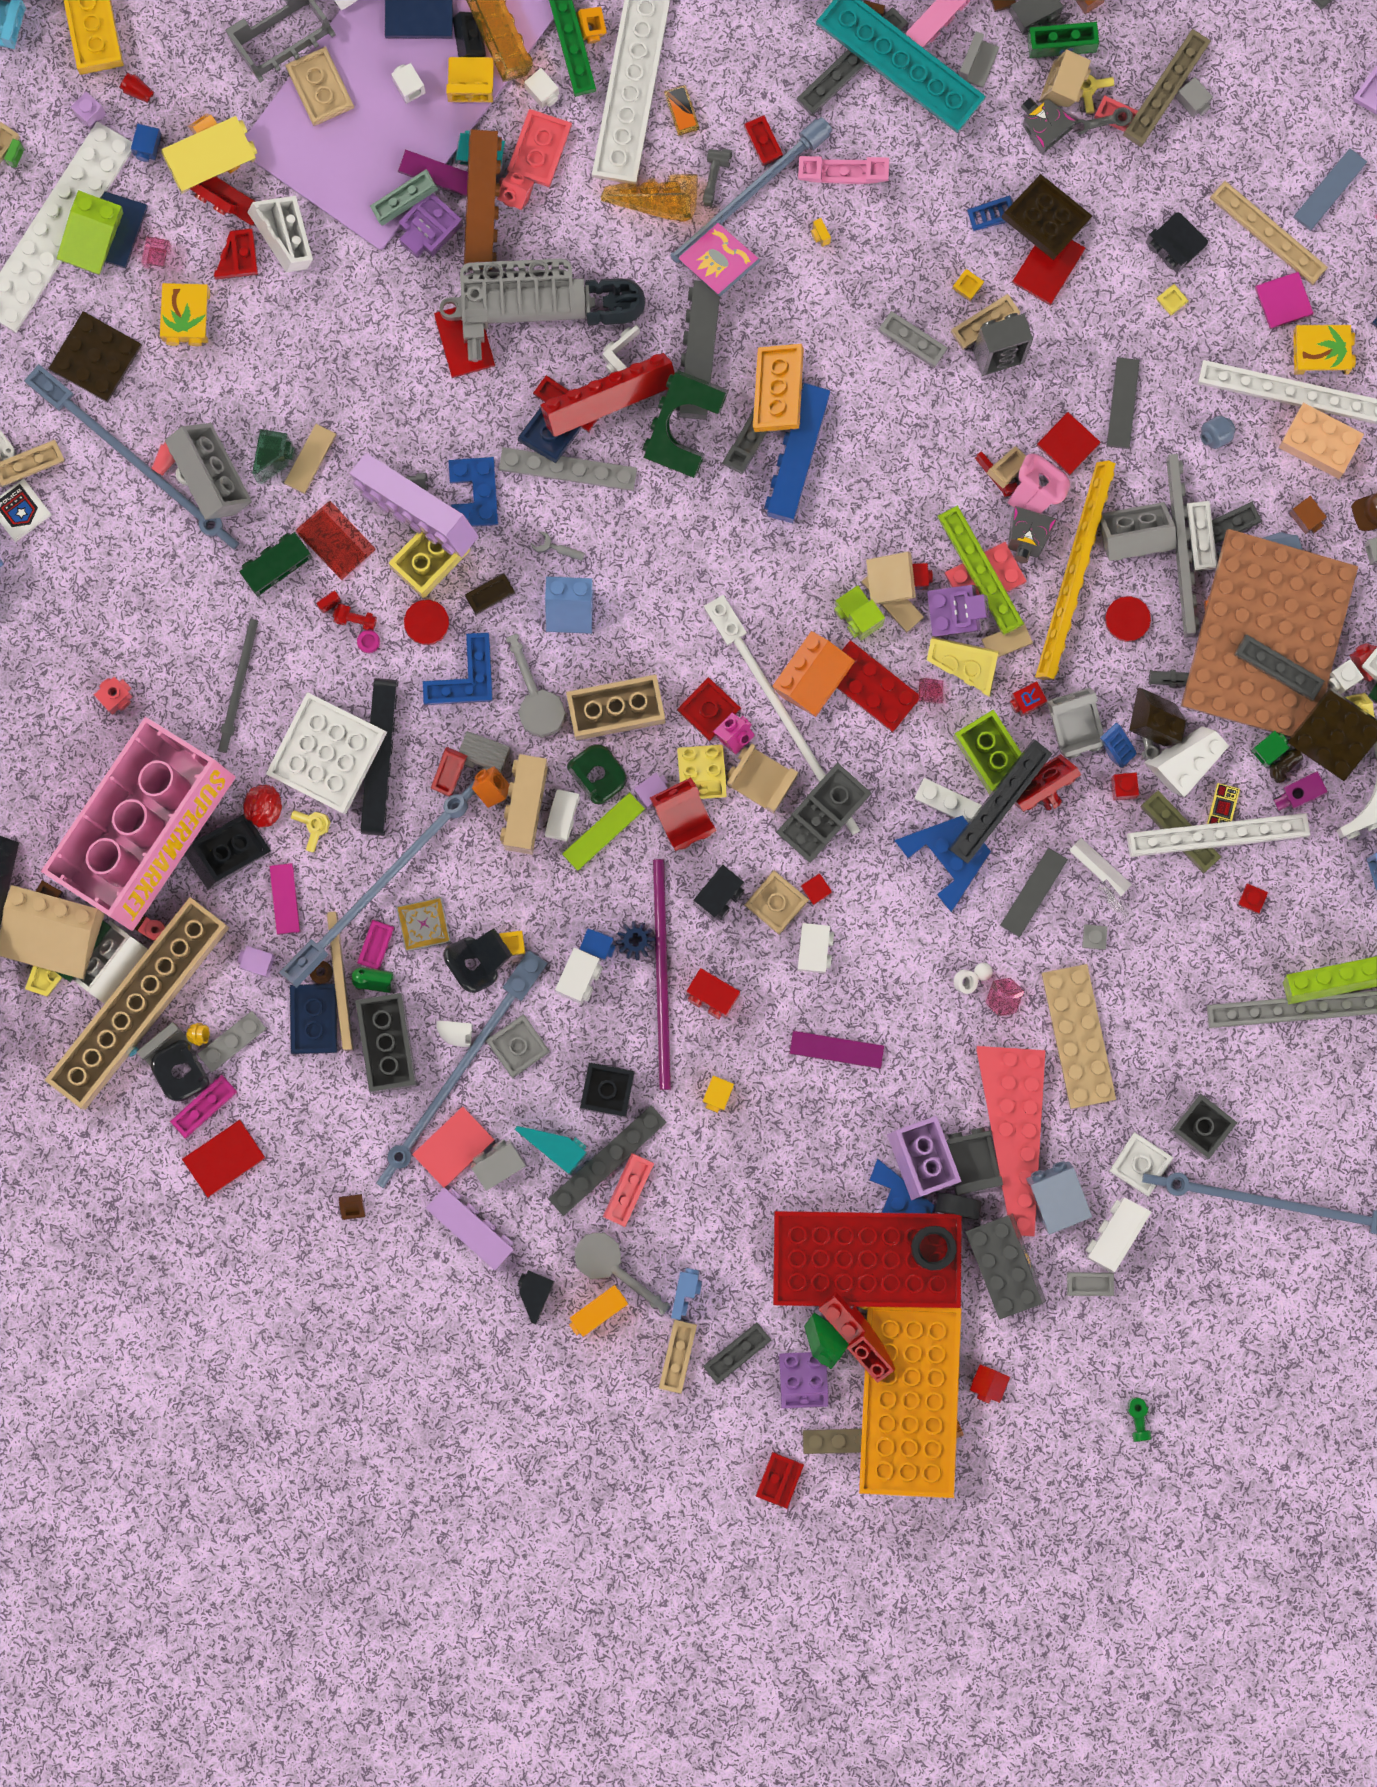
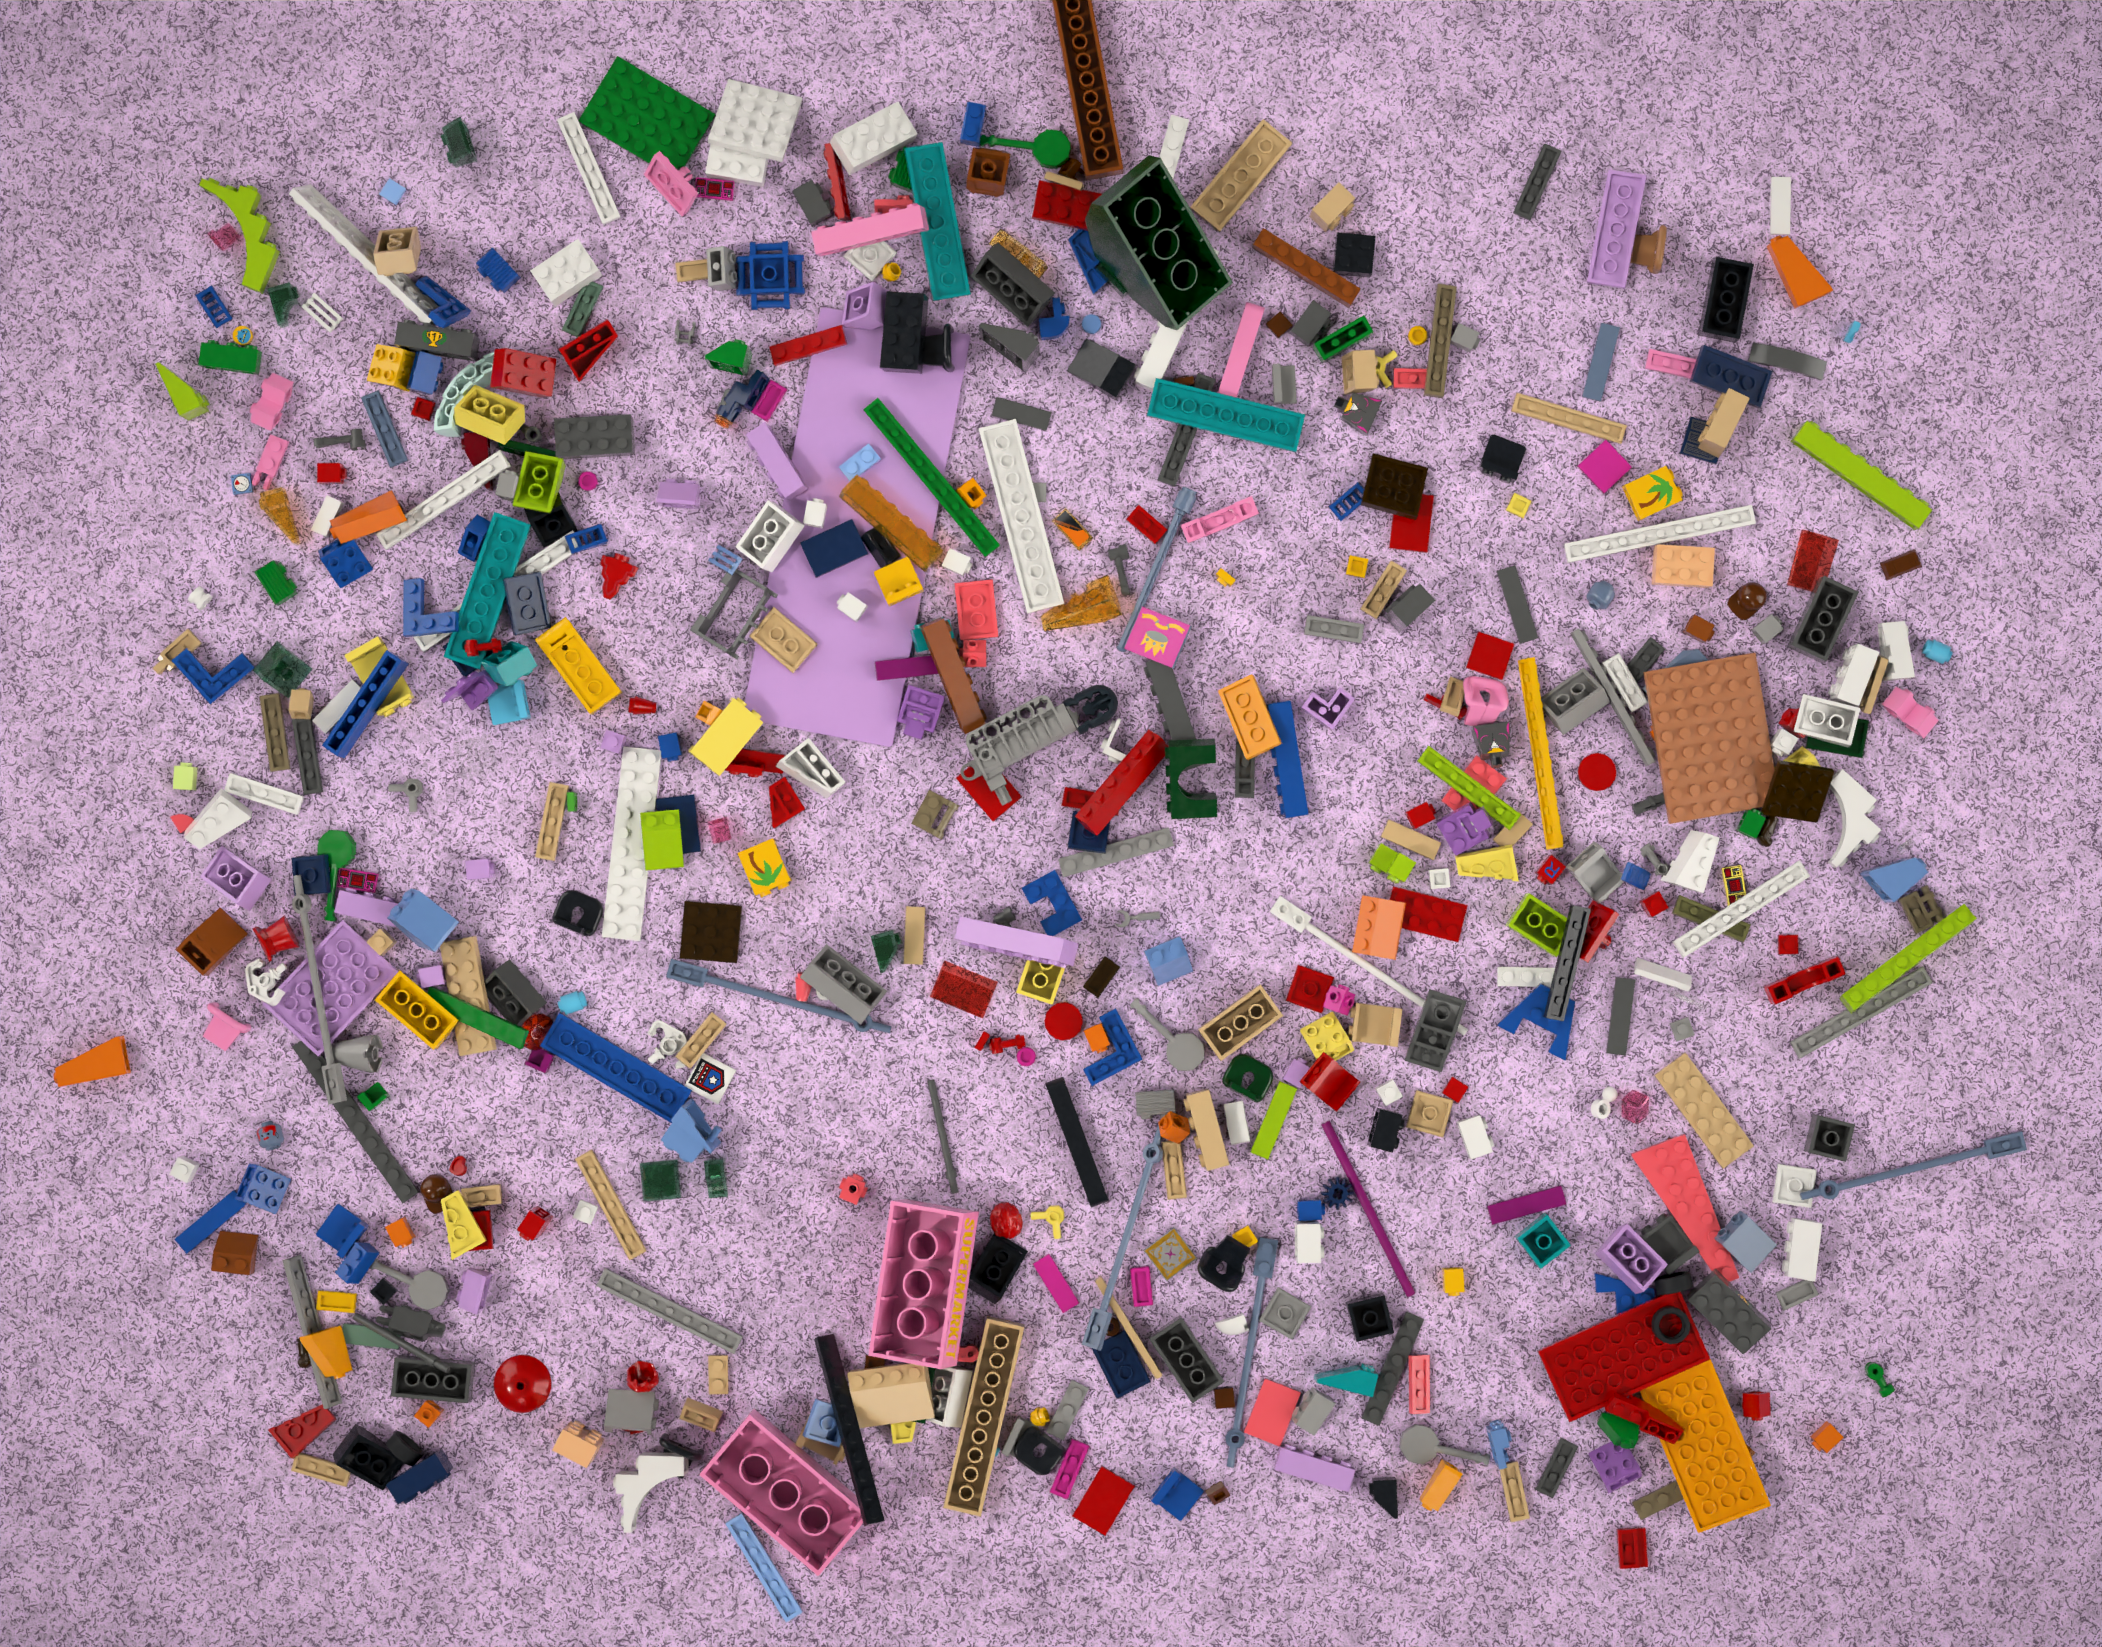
camera: 25 degrees left, 5 degrees up
(256, 961) = (1057, 1341): lavender brick -> none
(275, 563) = (926, 1030): dark green brick -> none
(306, 1187) = (1176, 1494): none -> blue bracket
(326, 753) = (1036, 1159): white plate -> none
(372, 979) = (1151, 1314): green piece -> none
(388, 336) = (929, 810): none -> dark tan plate
(404, 197) = (892, 699): sand green tile -> none
(408, 1107) = (1224, 1398): none -> reddish brown tile
(449, 771) = (1136, 1129): red tile -> none
(453, 655) = (1097, 1038): none -> orange brick
(470, 835) = (1174, 1170): none -> tan tile
(666, 57) = (1040, 491): none -> light grey tile
(712, 993) = (1415, 1208): red brick -> none
(742, 857) = (1388, 1092): none -> white brick
(835, 1094) = (1542, 1240): none -> teal brick
(867, 422) = (1328, 712): none -> lavender brick
(891, 578) = (1404, 826): tan tile -> none
(904, 654) = (1439, 878): none -> white plate
(930, 691) = (1472, 897): clear pink plate -> none
(1050, 1457) = (1826, 1437): none -> orange brick
(1116, 119) = (1413, 384): dark grey brick -> none
(1145, 74) = (1417, 335): none -> yellow tile
(1157, 719) = (1655, 841): dark brown slope -> none
(1253, 943) = (1804, 979): none -> red arch
(1279, 667) = (1731, 760): dark grey tile -> none
(1312, 787) = (1793, 839): magenta torso -> none

